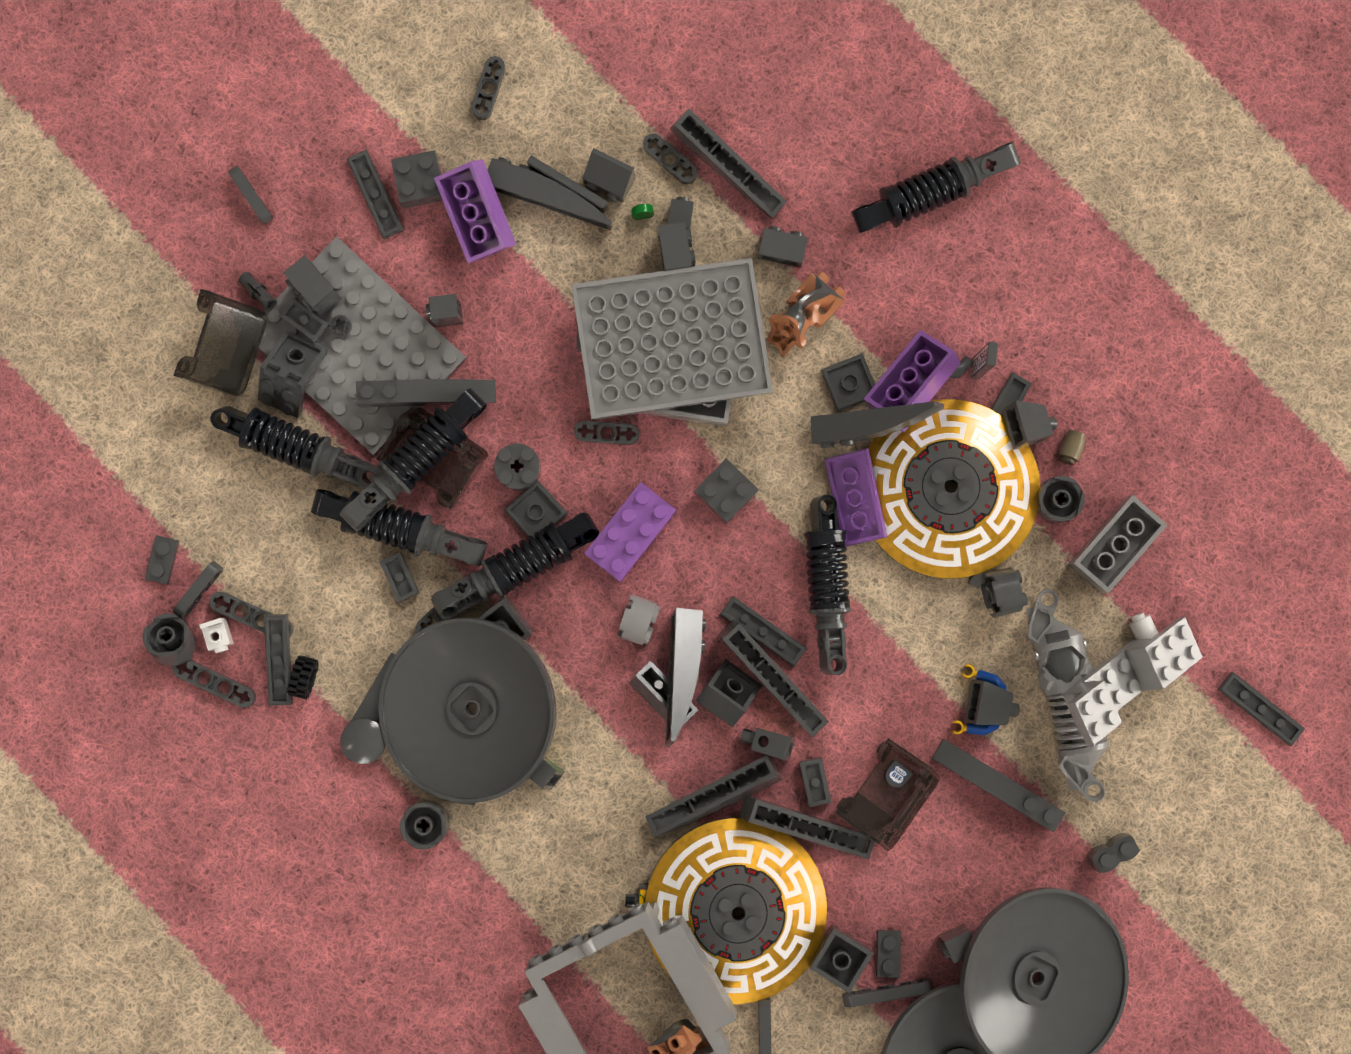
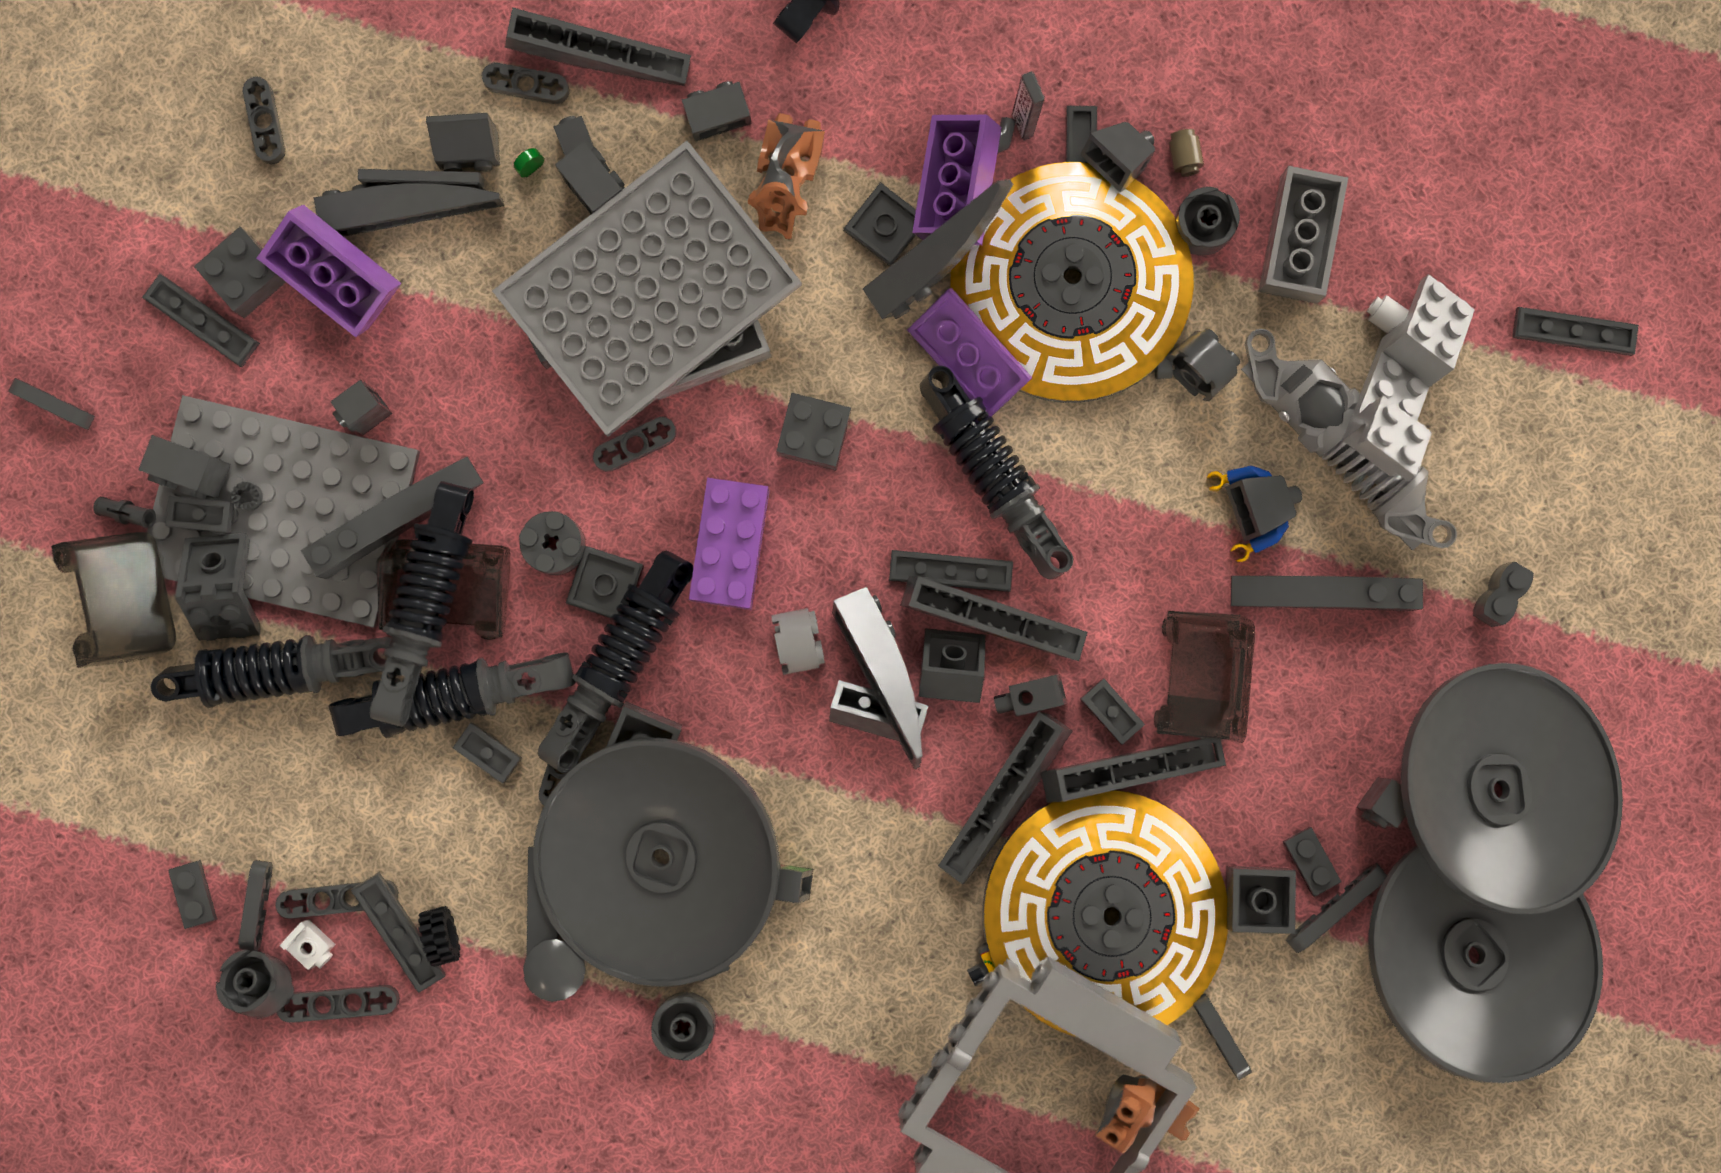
camera: 30 degrees left, 0 degrees up
(897, 775) = (1202, 647): tile -> none

